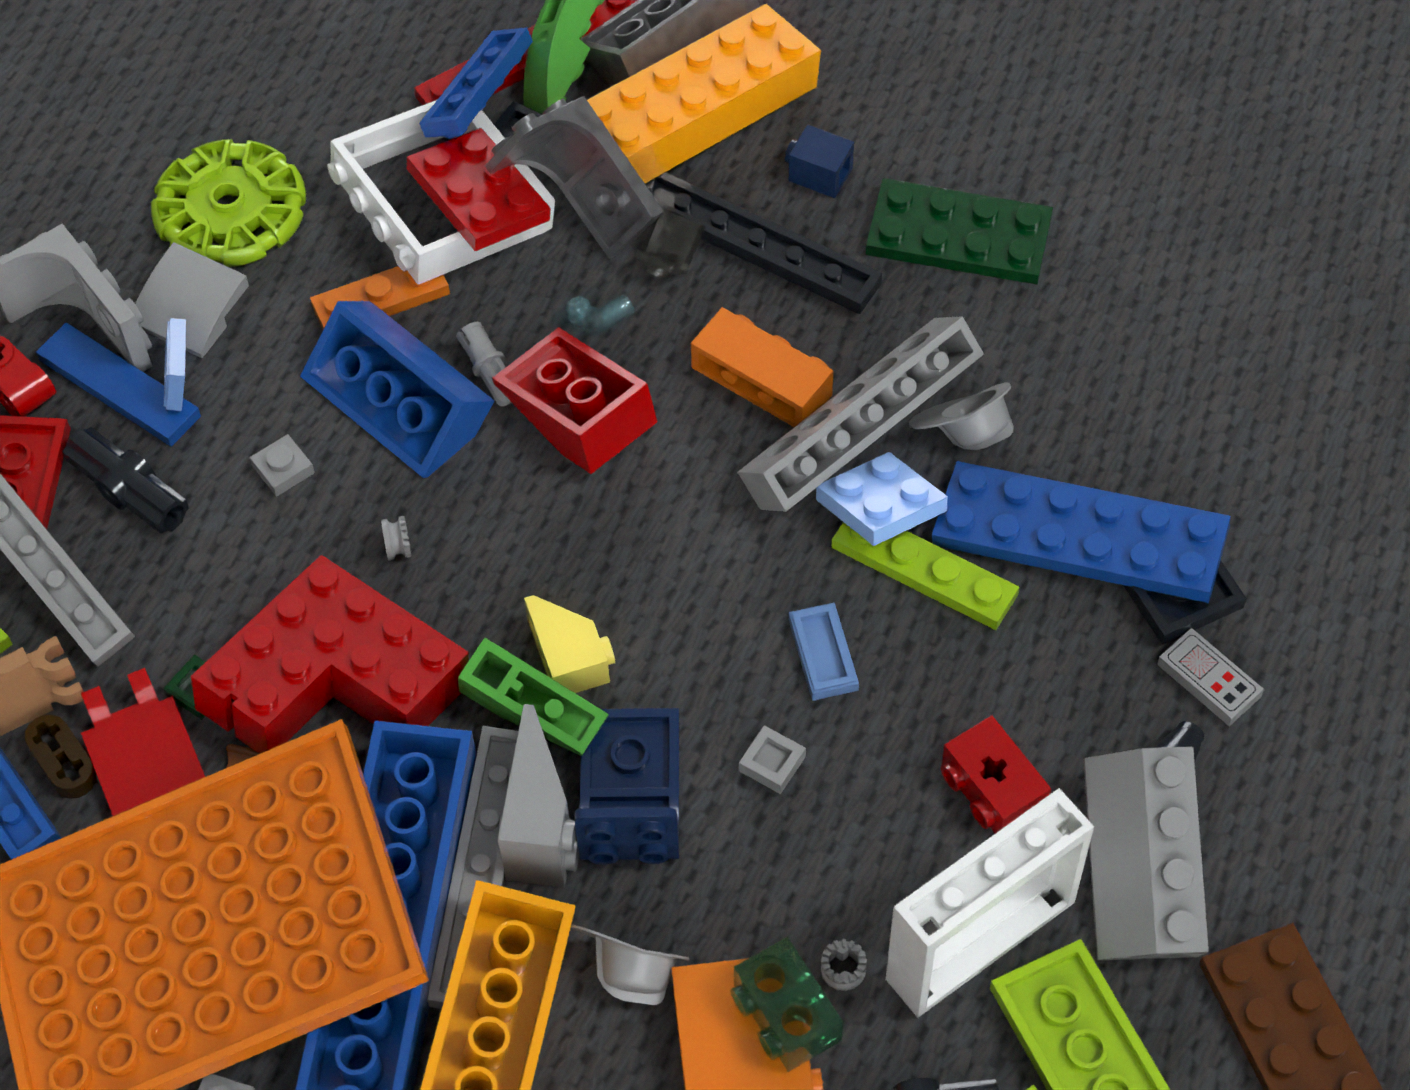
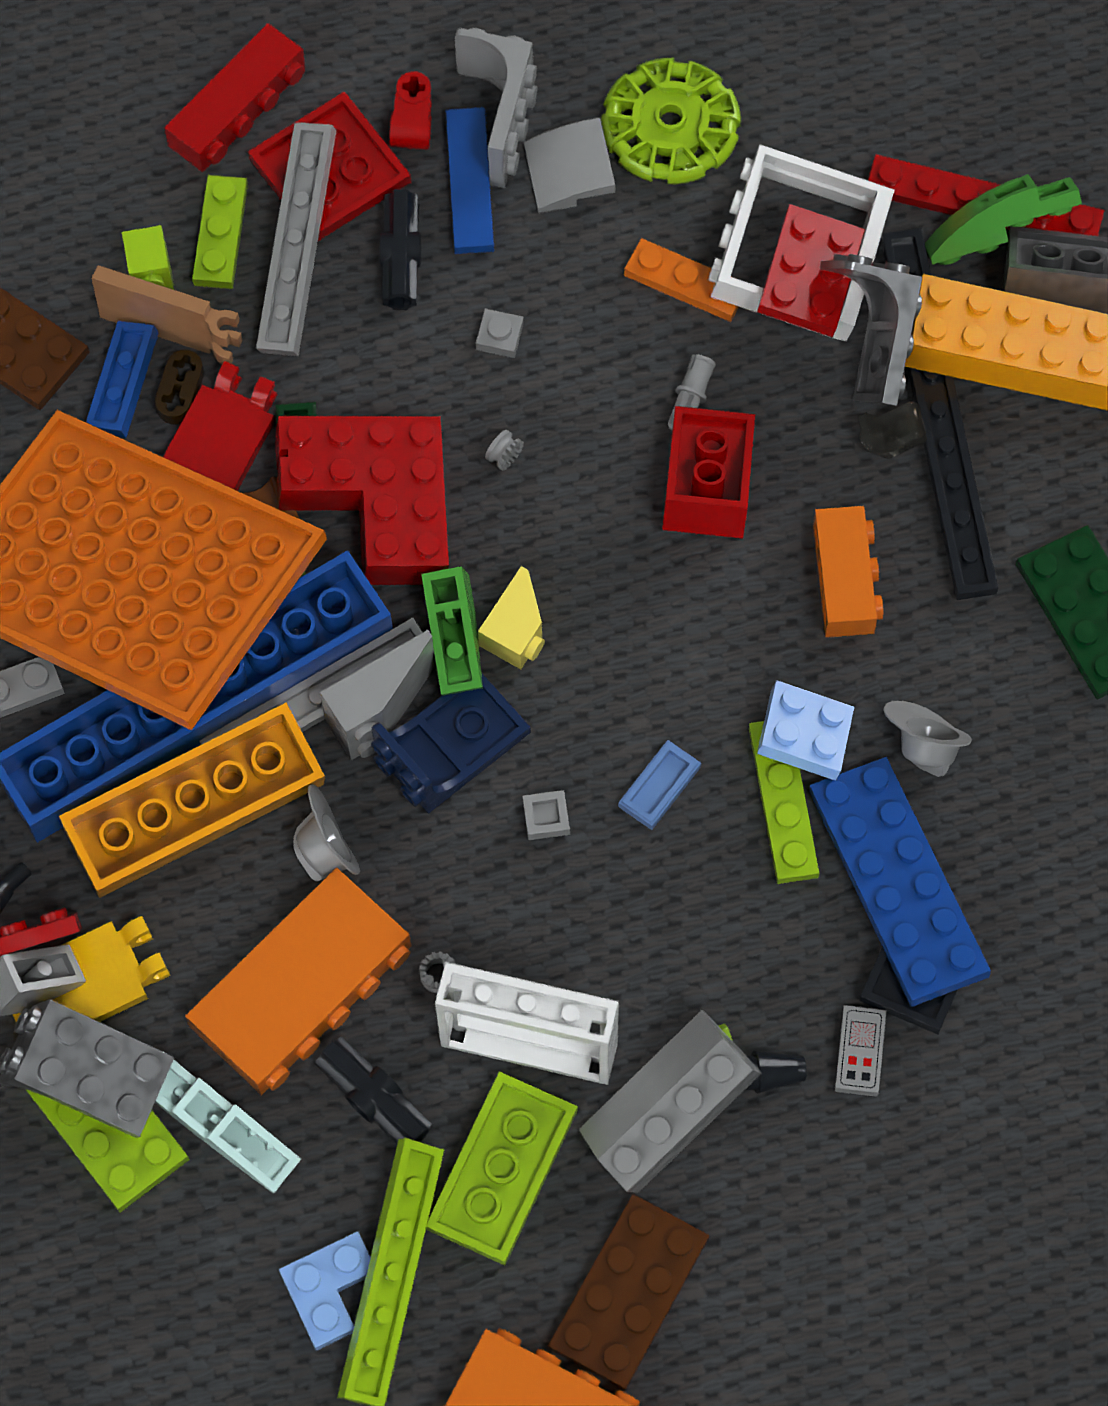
camera: 50 degrees right, 10 degrees up
(174, 364) = (507, 202): tile -> none
(395, 386) = (619, 351): blue slope -> none
(476, 83) = (899, 194): blue plate -> none
(595, 318) = (793, 431): clear light blue arm -> none
(796, 1001) = (371, 956): clear green brick -> none
(820, 160) = (1061, 471): dark blue brick -> none
(860, 413) = (863, 664): light grey brick -> none
(992, 754) = (653, 989): red brick -> none

